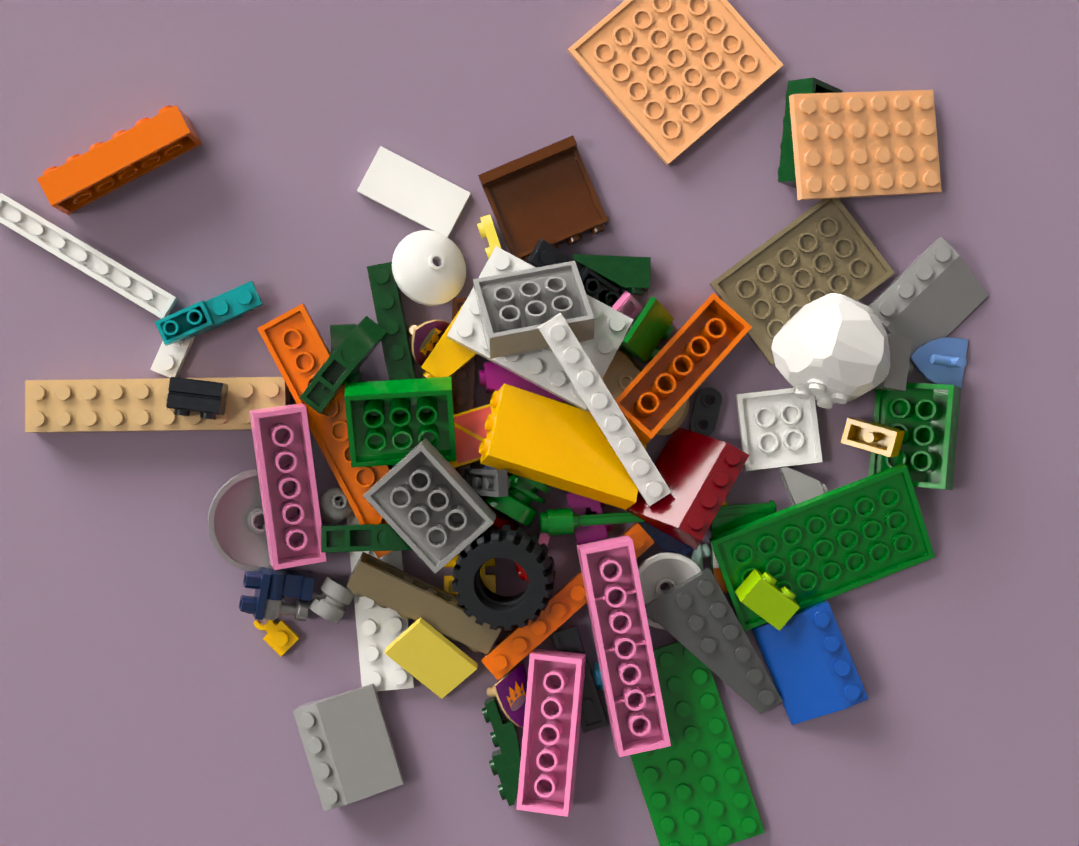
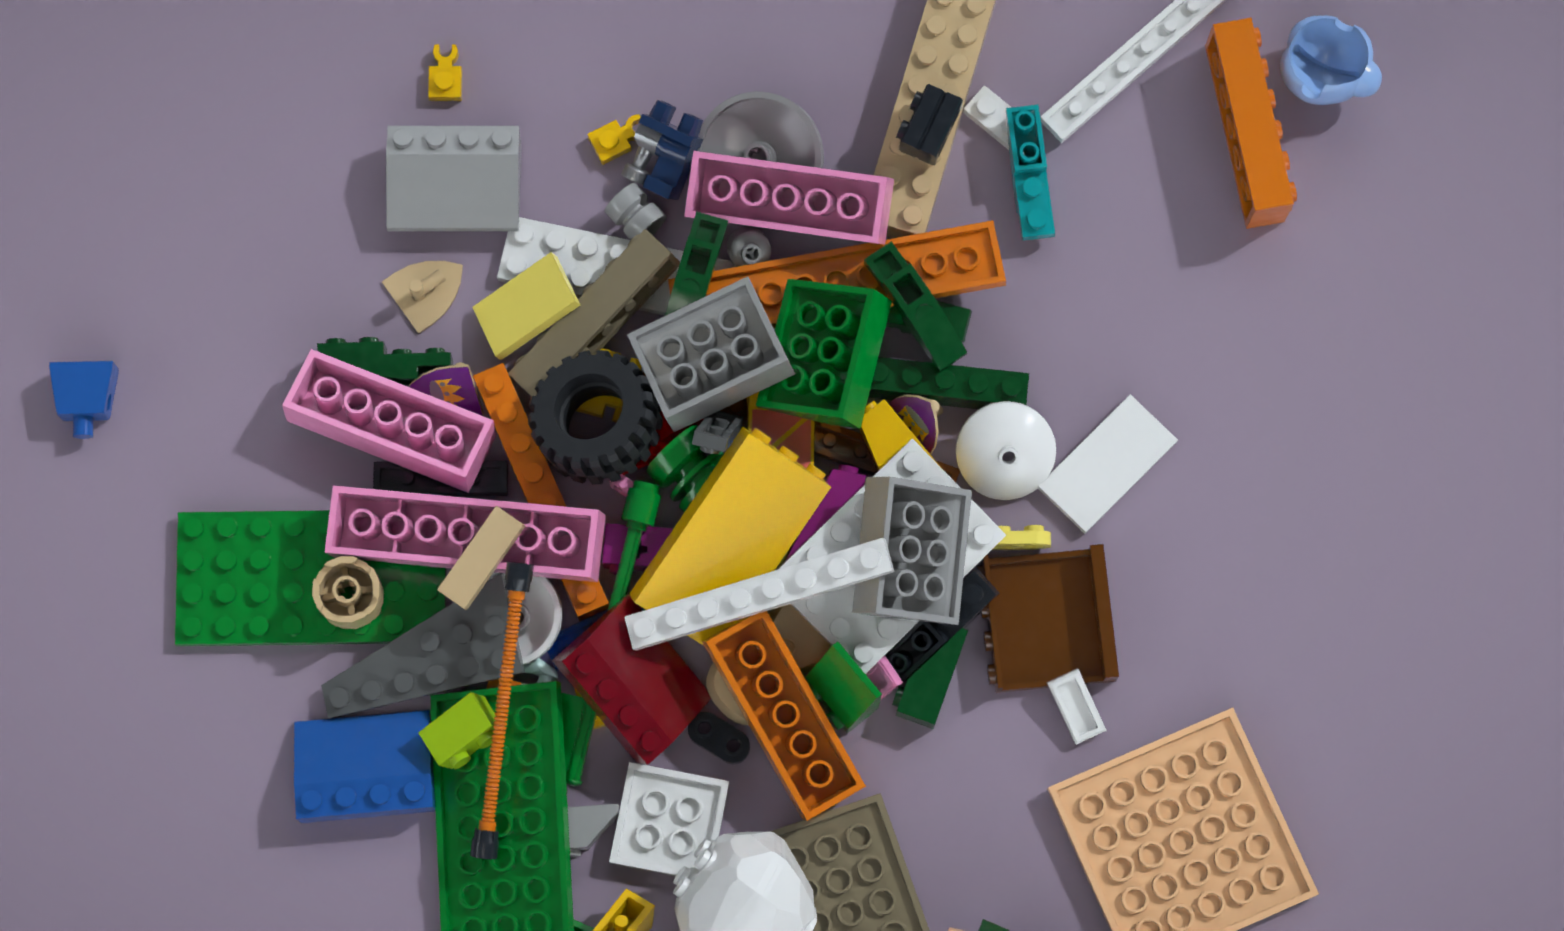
camera: 105 degrees right, 10 degrees down
(53, 113) = (1329, 62): none -> light blue piece
(270, 779) = (445, 79): none -> yellow plate
(439, 738) = (425, 290): none -> tan shield
(601, 161) = (1076, 706): none -> white tile
(642, 626) = (481, 558): none -> tan tile
(654, 592) = (485, 838): none -> orange hose
(707, 721) = (333, 580): none -> tan brick

